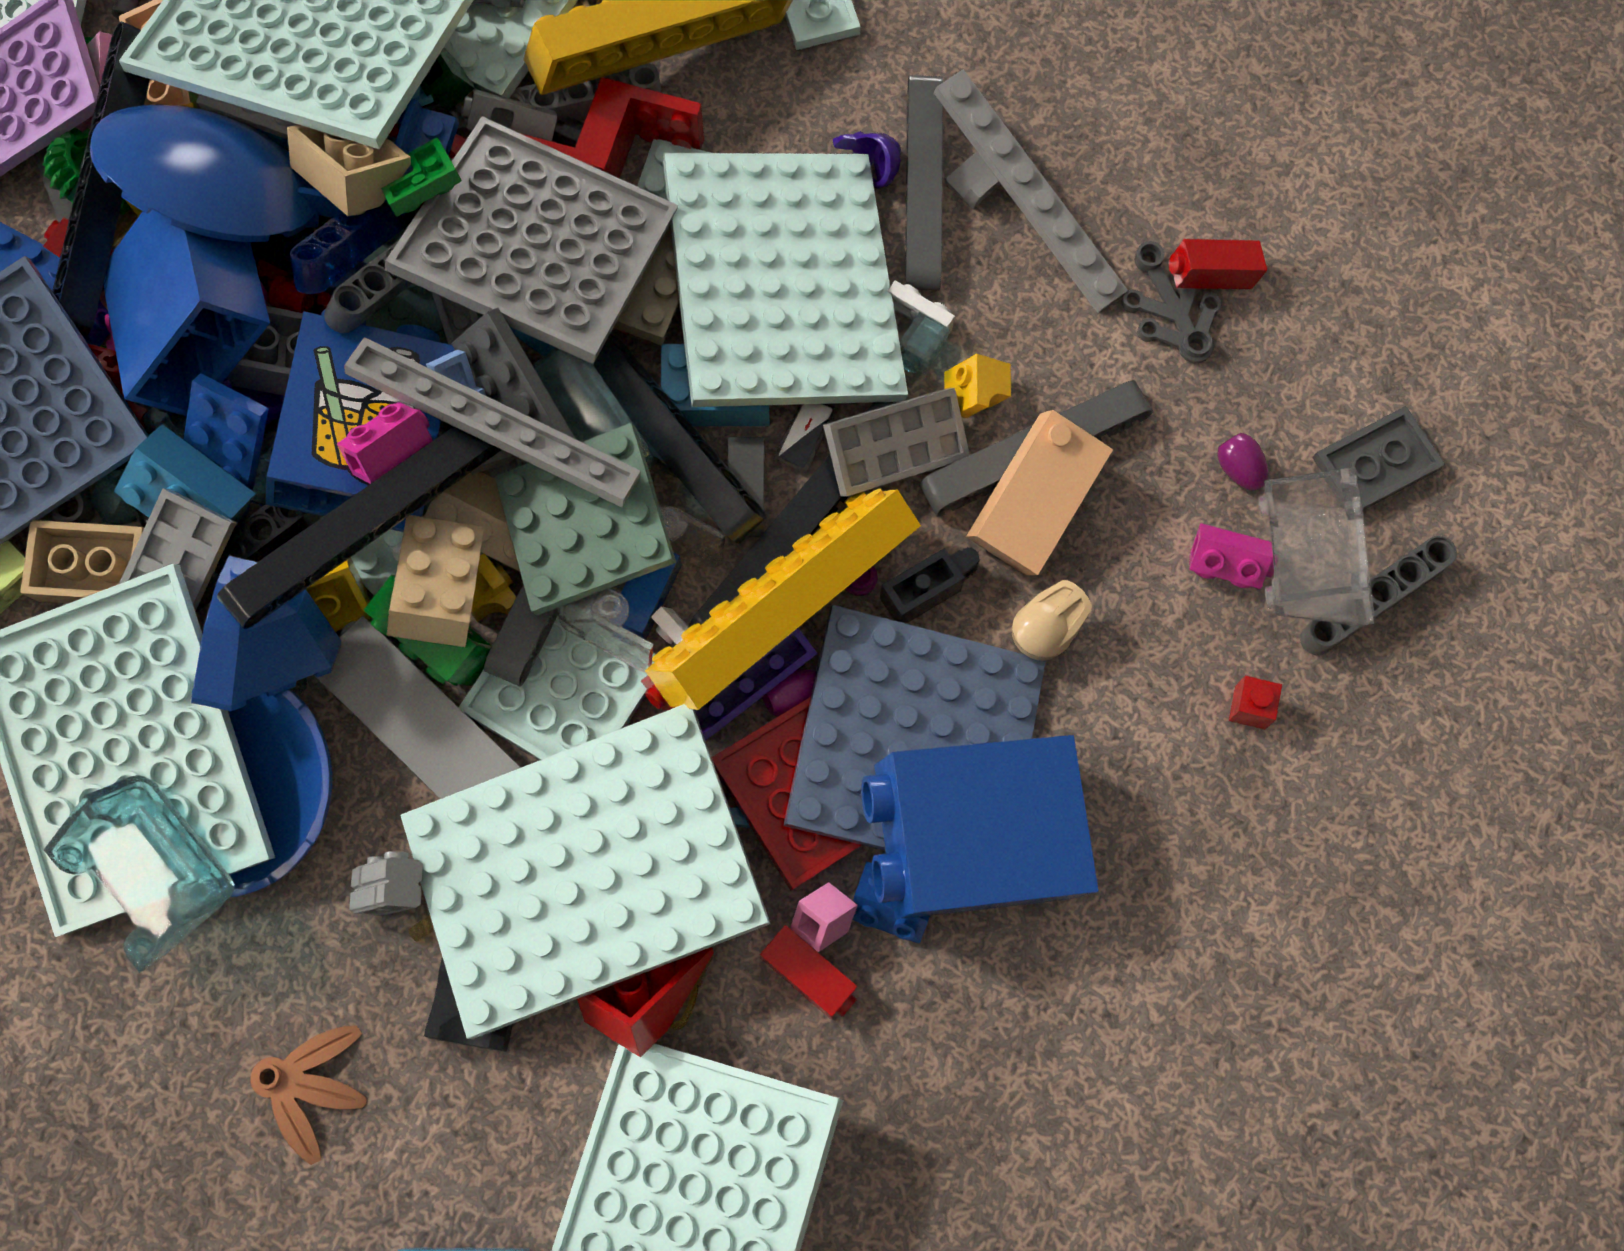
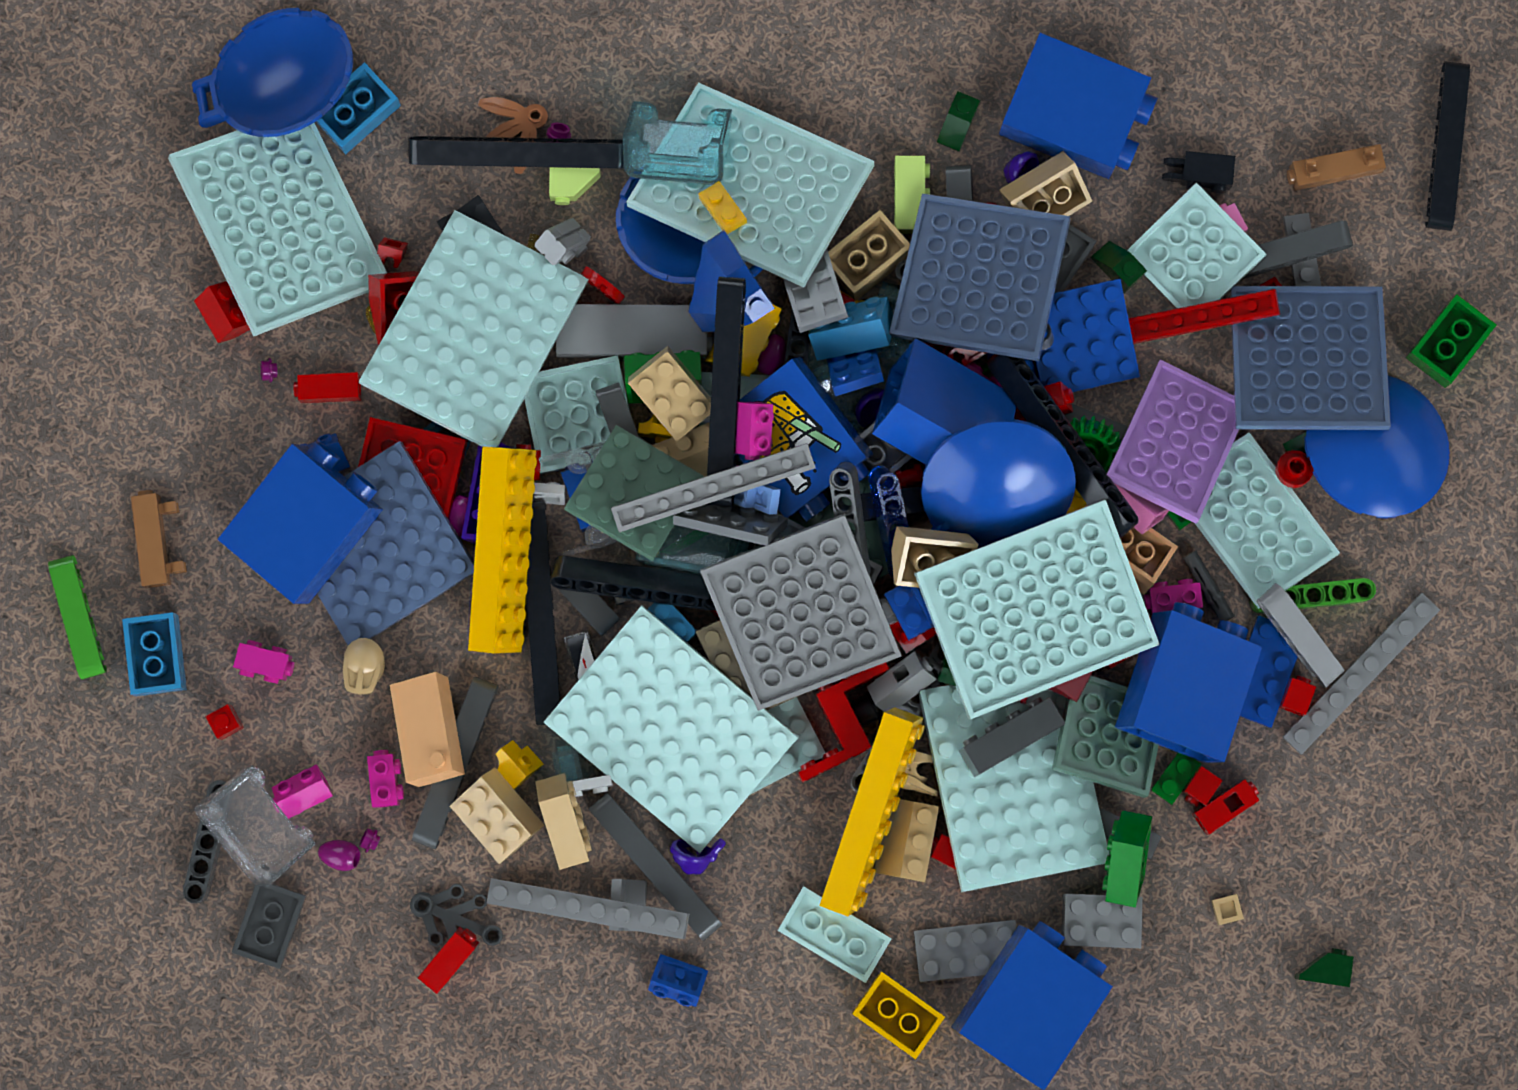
camera: 140 degrees right, 10 degrees up
(171, 741) = (722, 207): none -> yellow plate
(265, 1029) = (558, 130): none -> magenta plate
(311, 955) = (570, 183): none -> yellowish green slope
(332, 1048) = (515, 152): none -> black beam
(392, 794) = (603, 285): none -> red tile
(431, 177) = (874, 583): green plate -> none
(584, 1070) = (393, 249): none -> red tile
(823, 916) = (343, 418): bright pink brick -> none
(851, 1183) = (221, 312): none -> red slope
(859, 1061) = (268, 370): none -> magenta plate
(896, 441) = (525, 691): light grey plate -> none
(928, 583) = (442, 632): black hinge -> none
(978, 278) = (563, 820): none -> tan brick
(998, 66) = (677, 981): none -> blue bracket
(1042, 350) = (497, 815): none -> tan brick
(1130, 492) = (384, 780): none -> dark pink brick
(1156, 727) = (272, 663): none -> dark pink brick
(1169, 984) = (151, 540): none -> medium nougat brick
(1197, 452) = (369, 840): none -> magenta plate
(1276, 844) = (154, 654): none -> dark azure brick
(1332, 975) = (76, 618): none -> bright green beam

